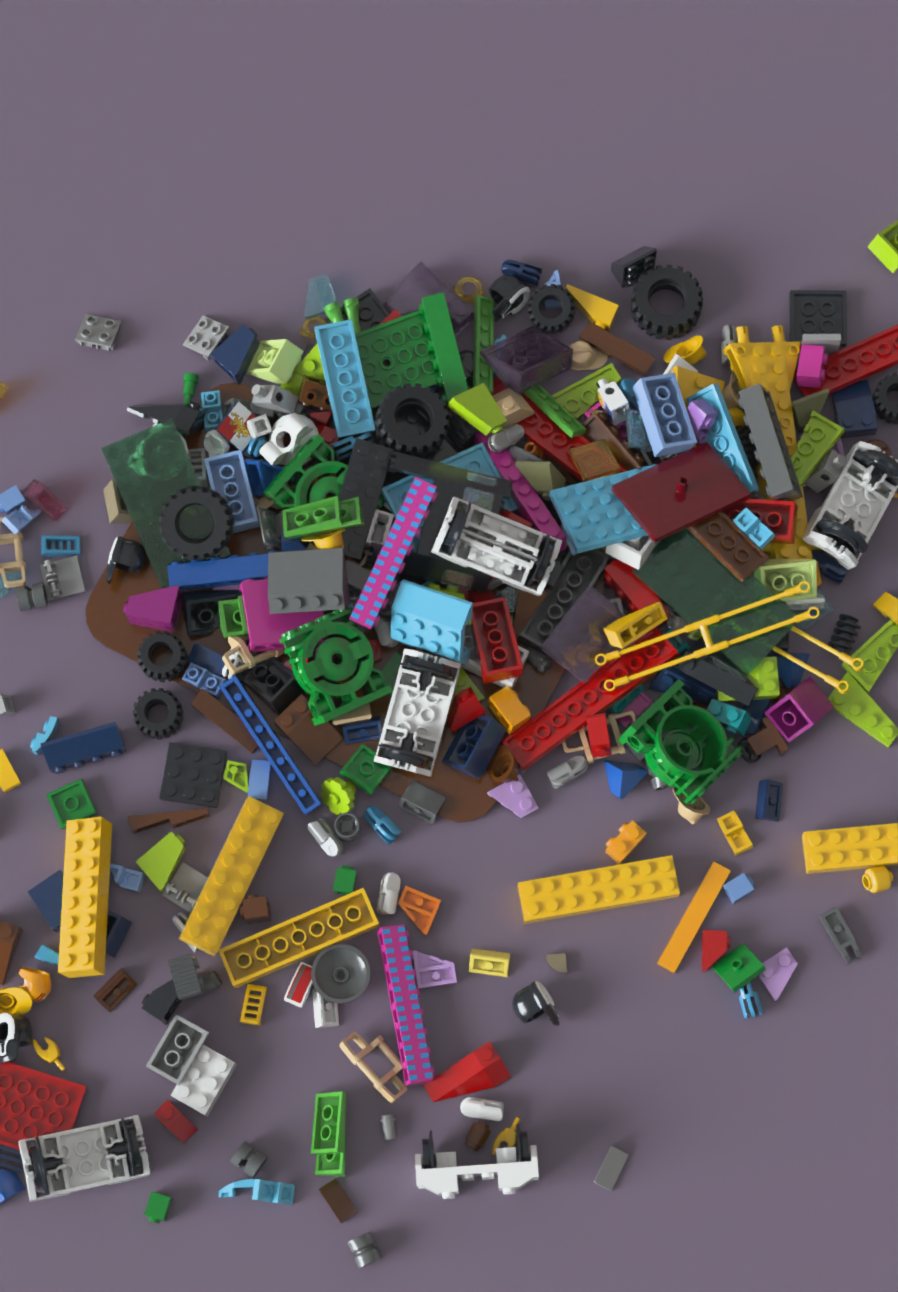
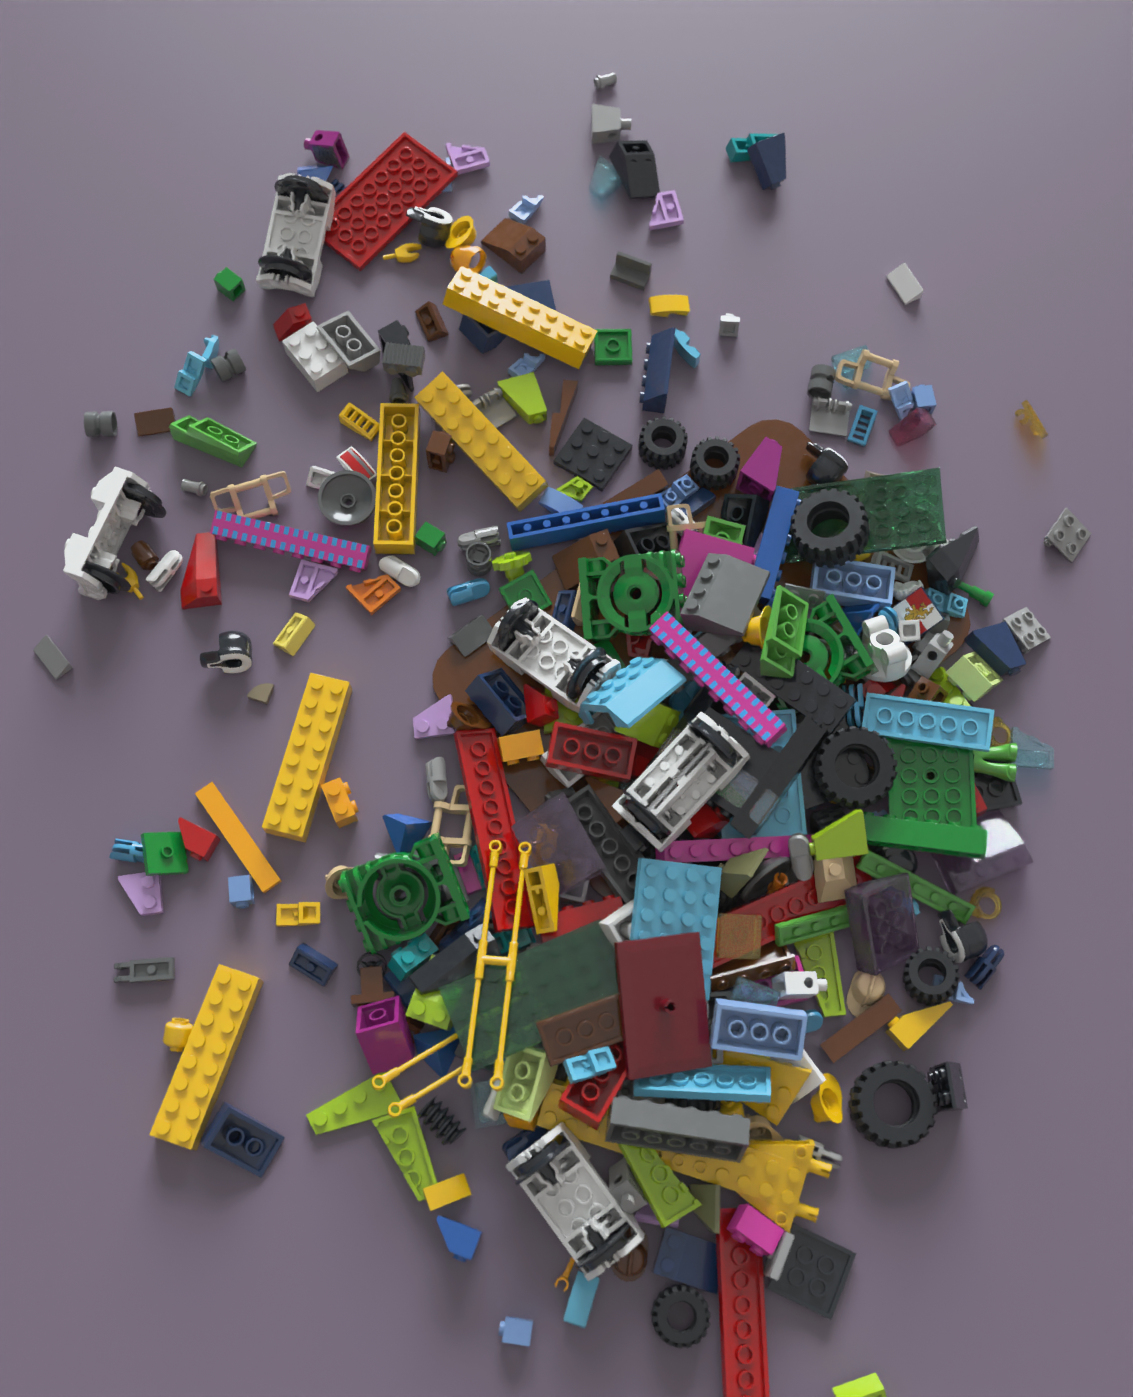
camera: 105 degrees right, 5 degrees down
(599, 735) = (451, 818): red slope -> none
(702, 418) = (737, 1067): medium lavender slope -> none

